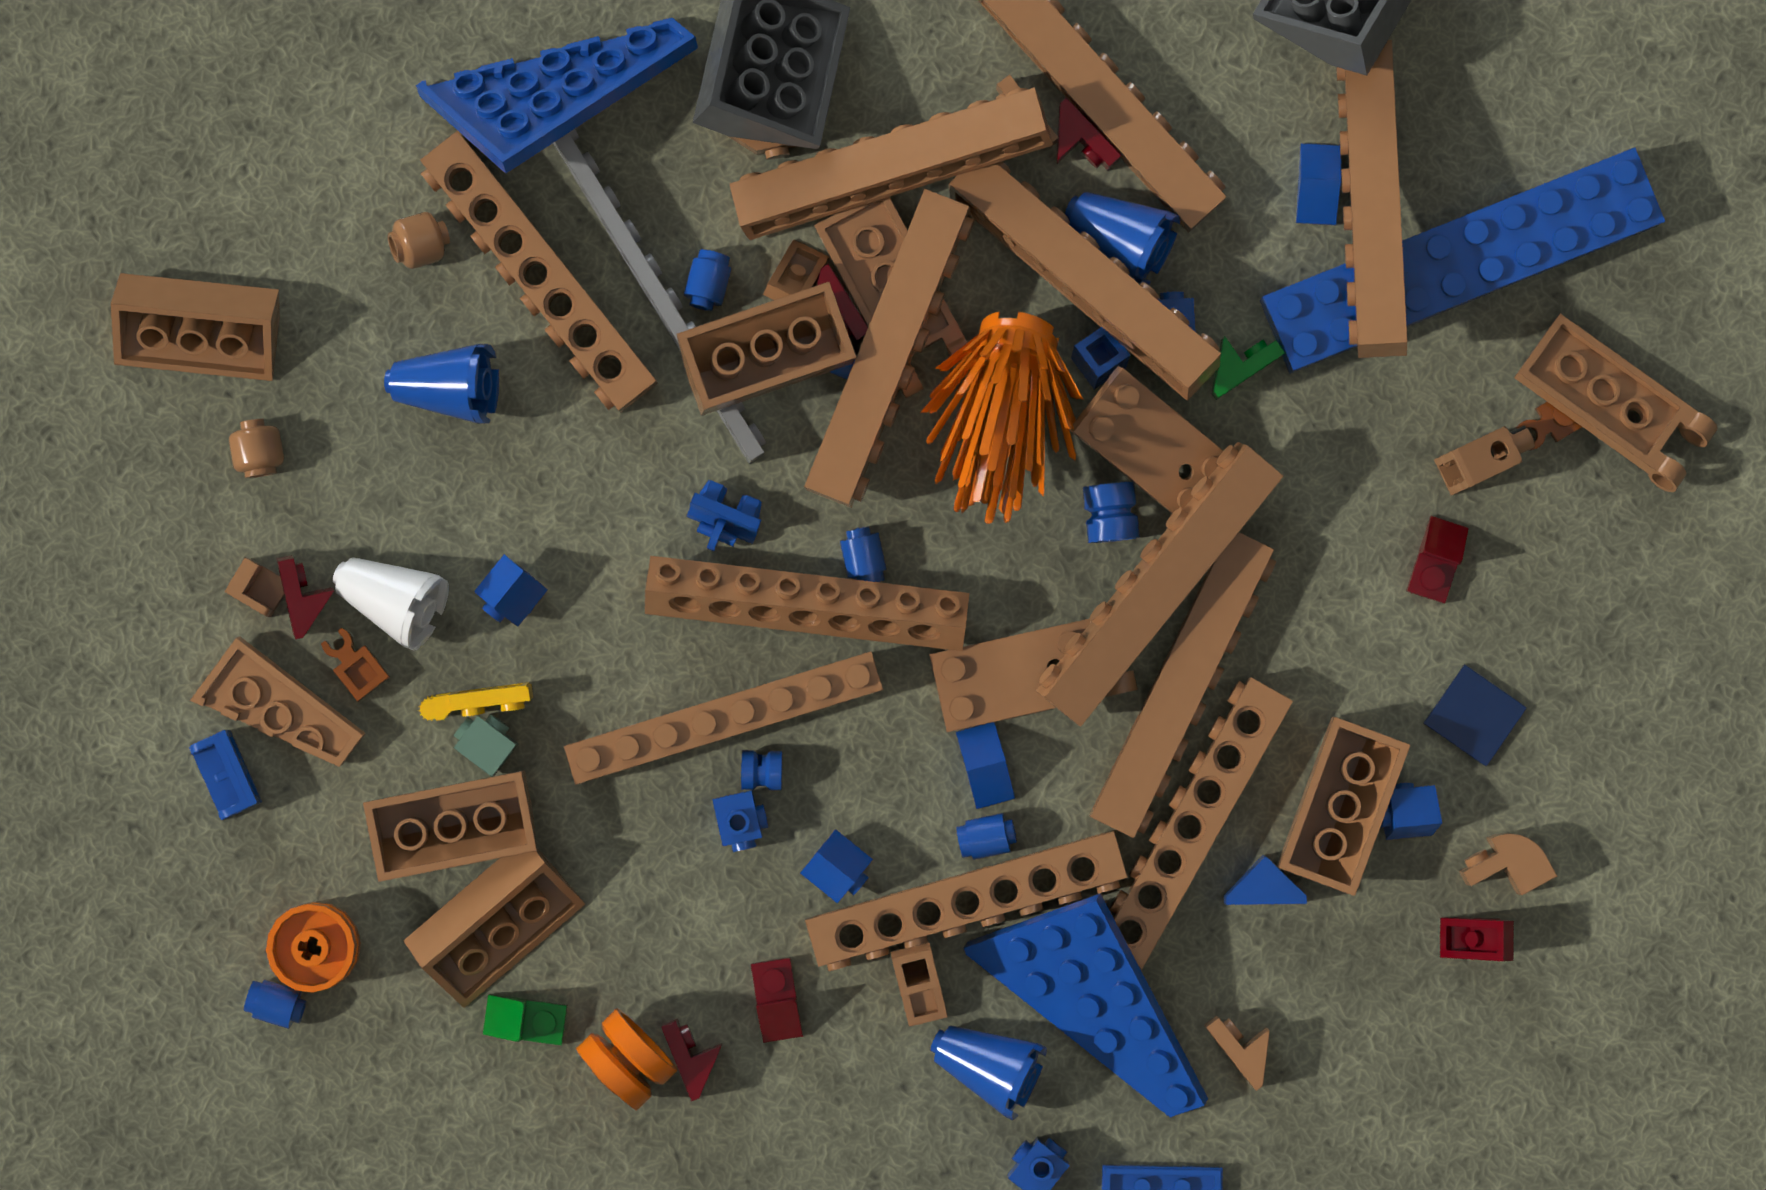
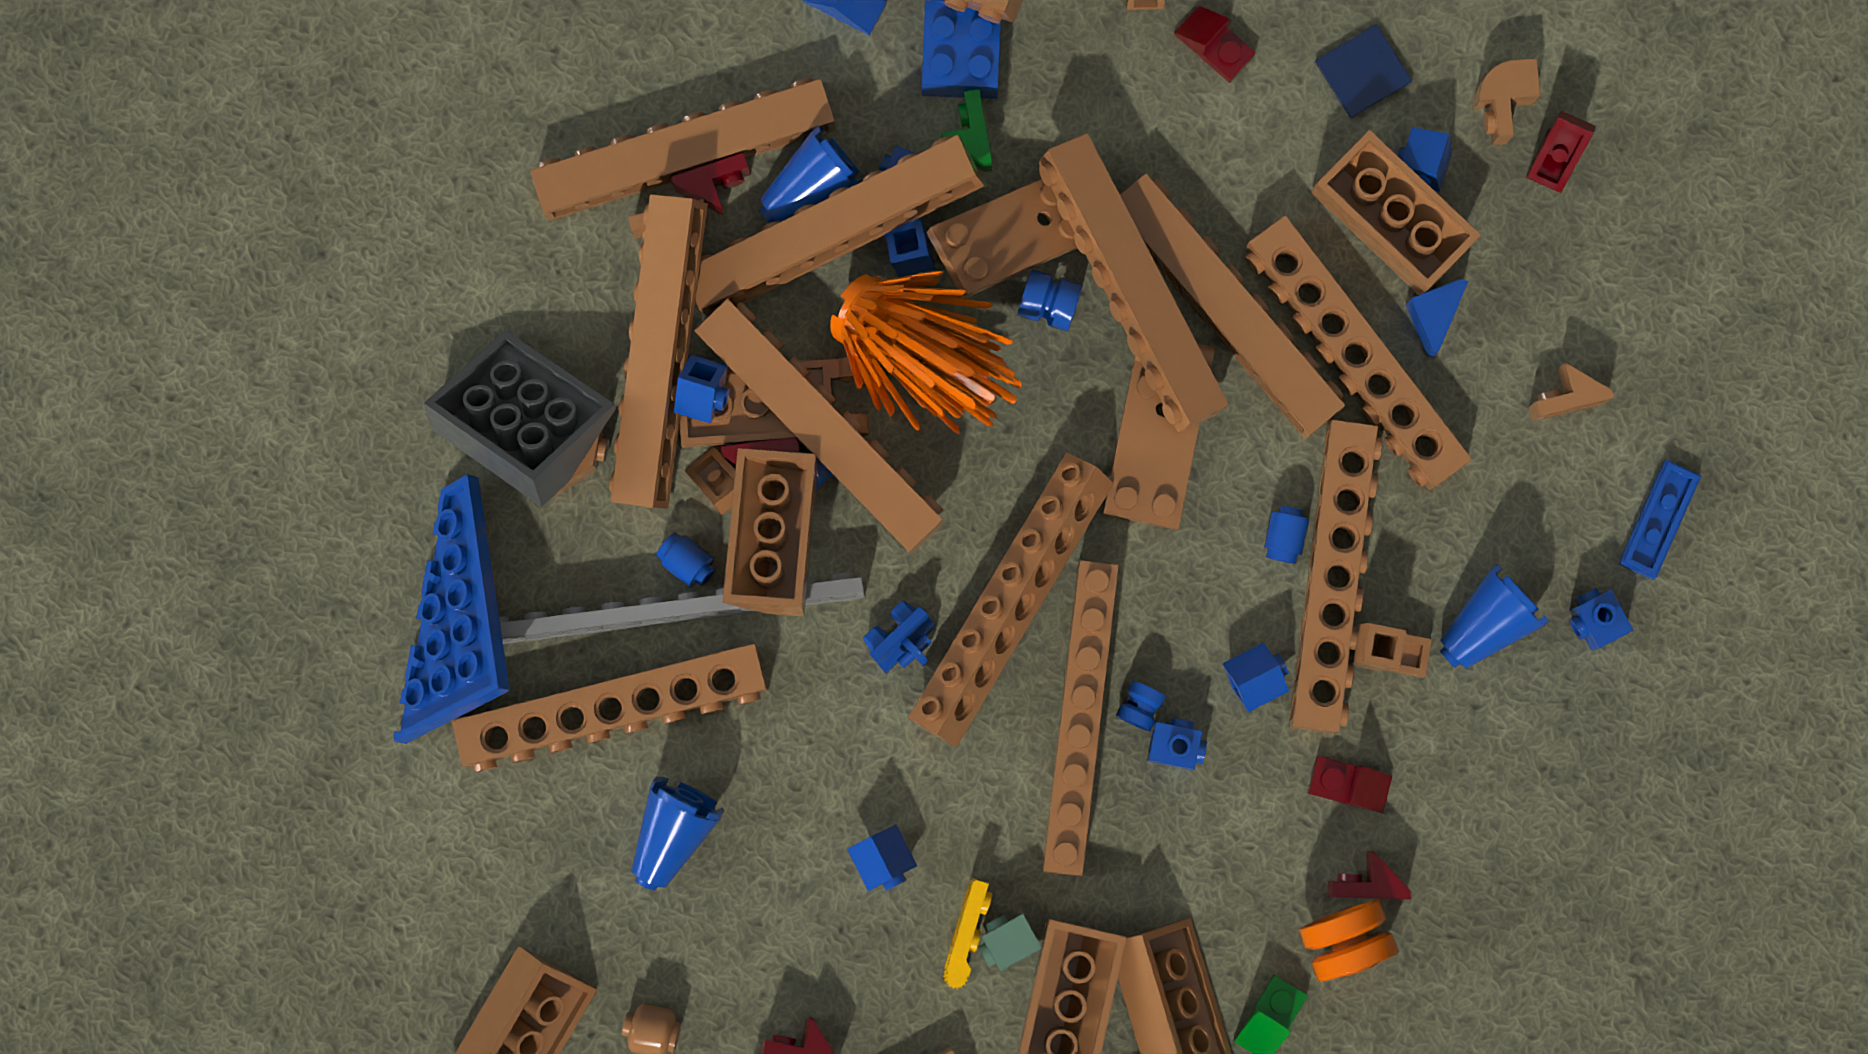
camera: 65 degrees left, 5 degrees down
(359, 669) = (891, 1026): dark orange plate -> none
(393, 597) = (841, 966): white cone -> none
(418, 240) = (532, 800): medium nougat head -> none
(863, 555) = (990, 532): blue brick -> none
(872, 221) = (699, 397): none -> blue brick
(985, 765) = (1222, 508): blue slope -> none
(1089, 986) = (1460, 500): blue wing -> none

